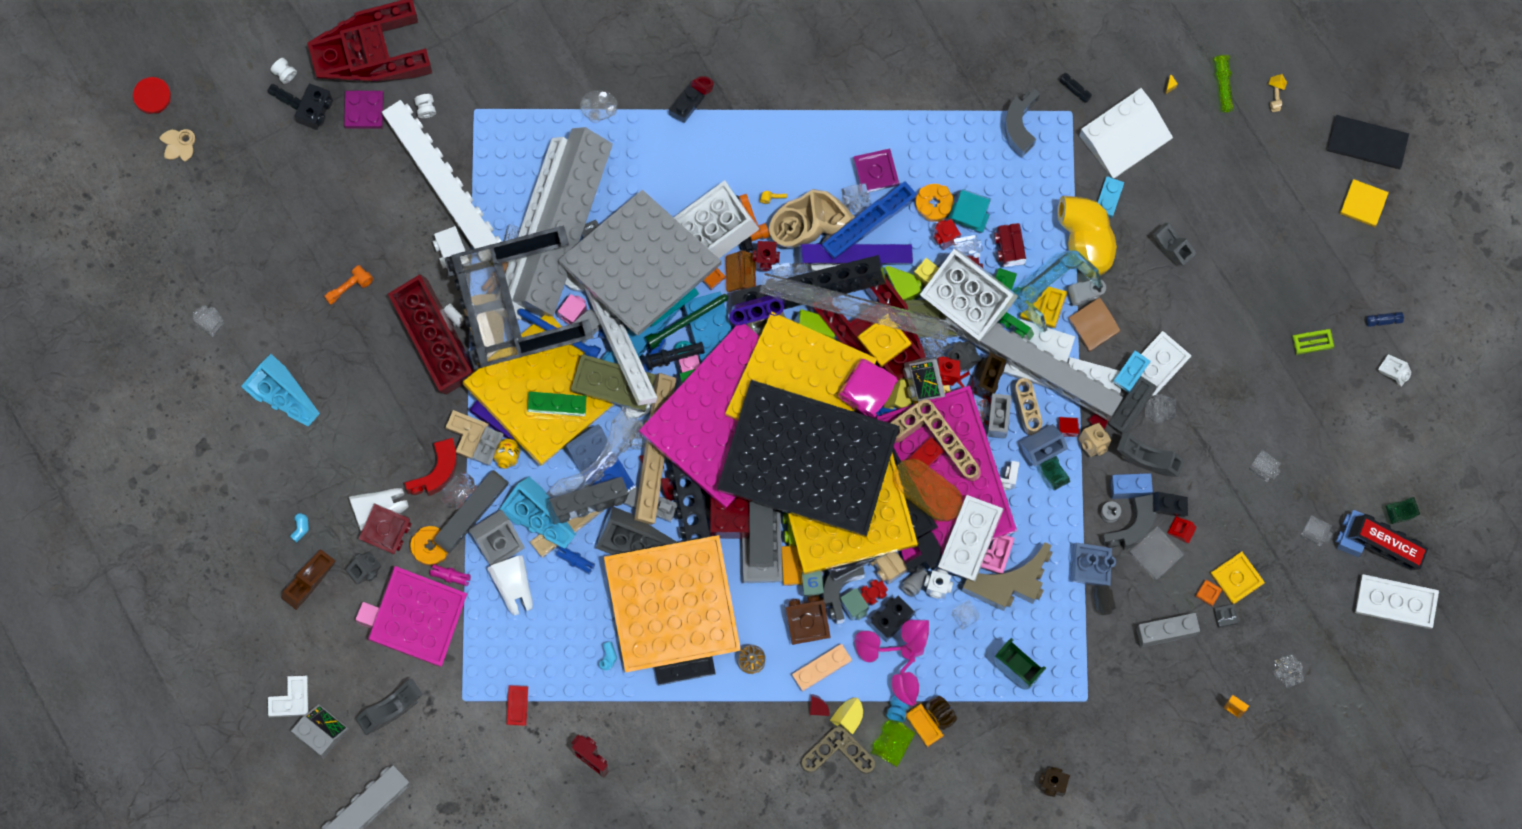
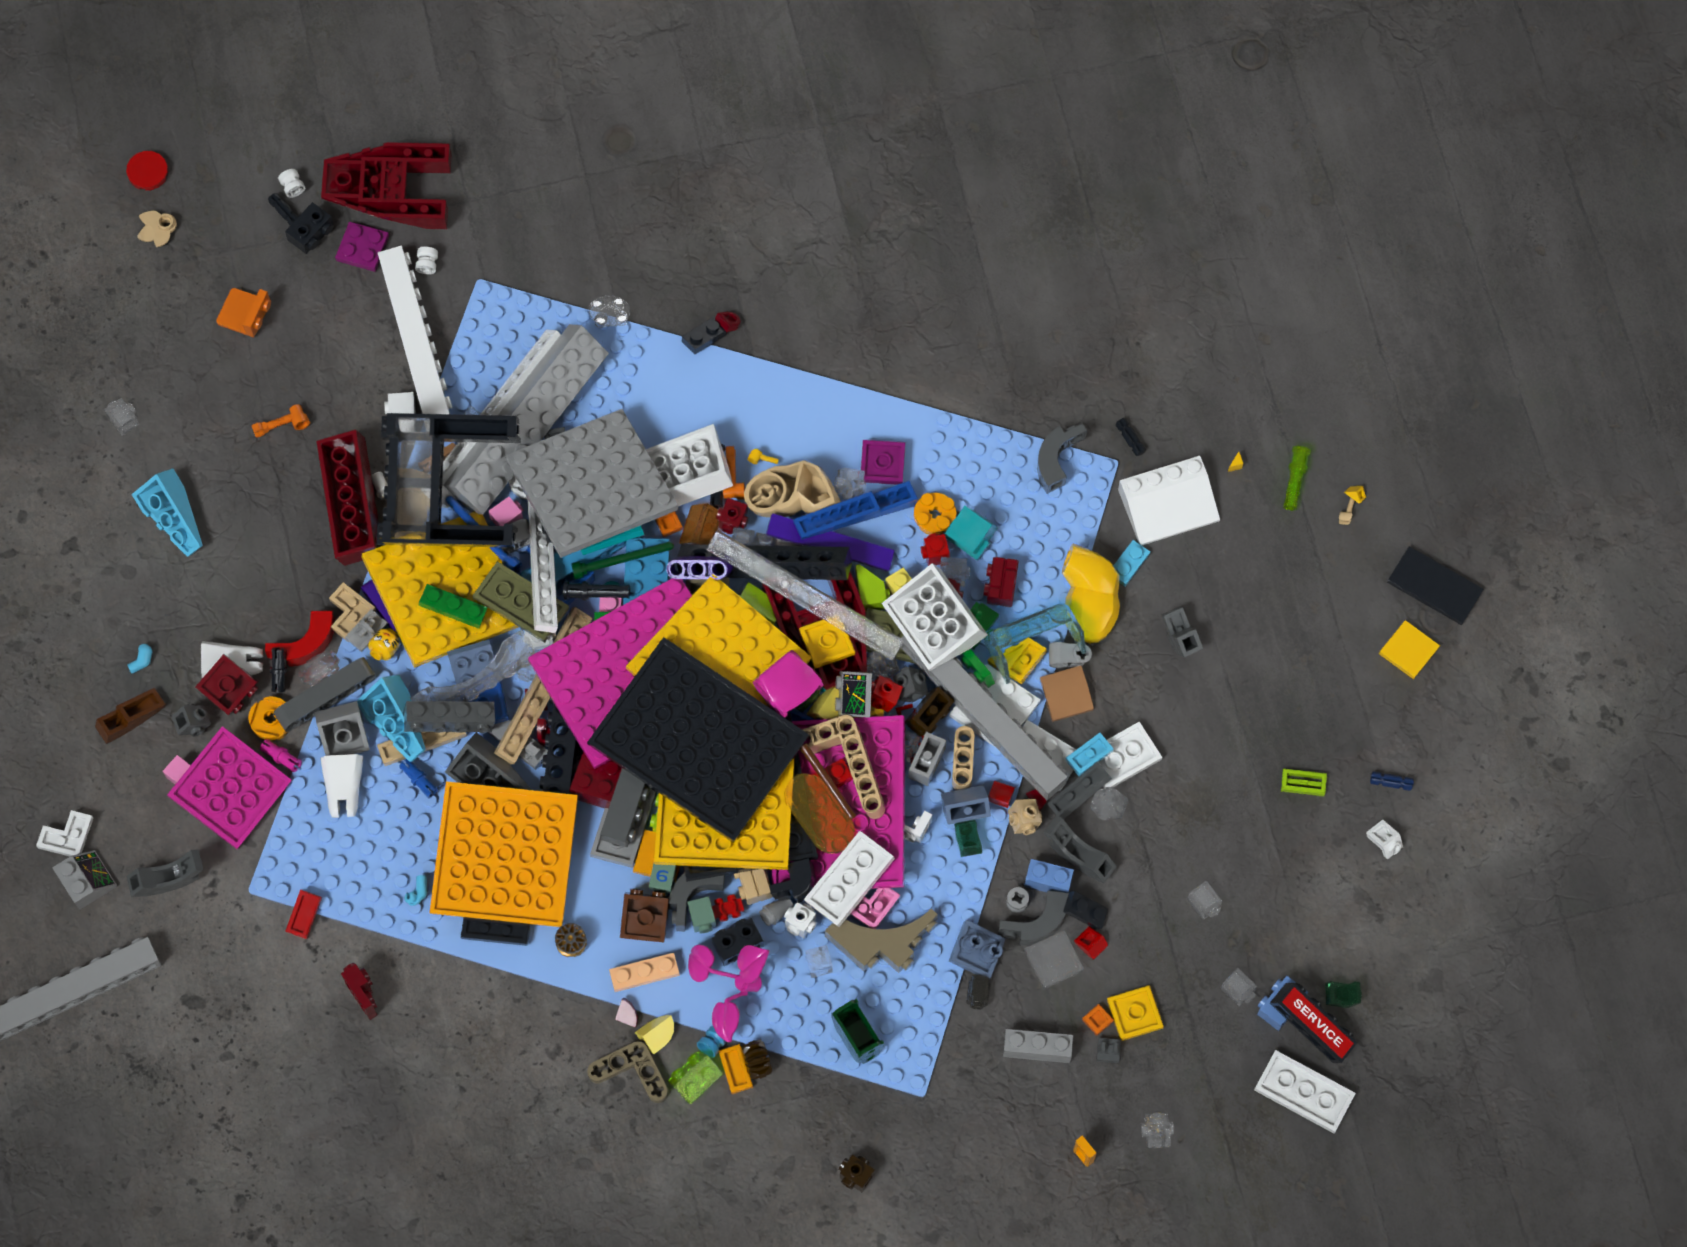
camera: 20 degrees right, 5 degrees down
(282, 196) = (244, 311): none -> orange bracket
(423, 502) = (278, 669): none -> black pin
(920, 456) = (826, 778): none -> reddish brown bar

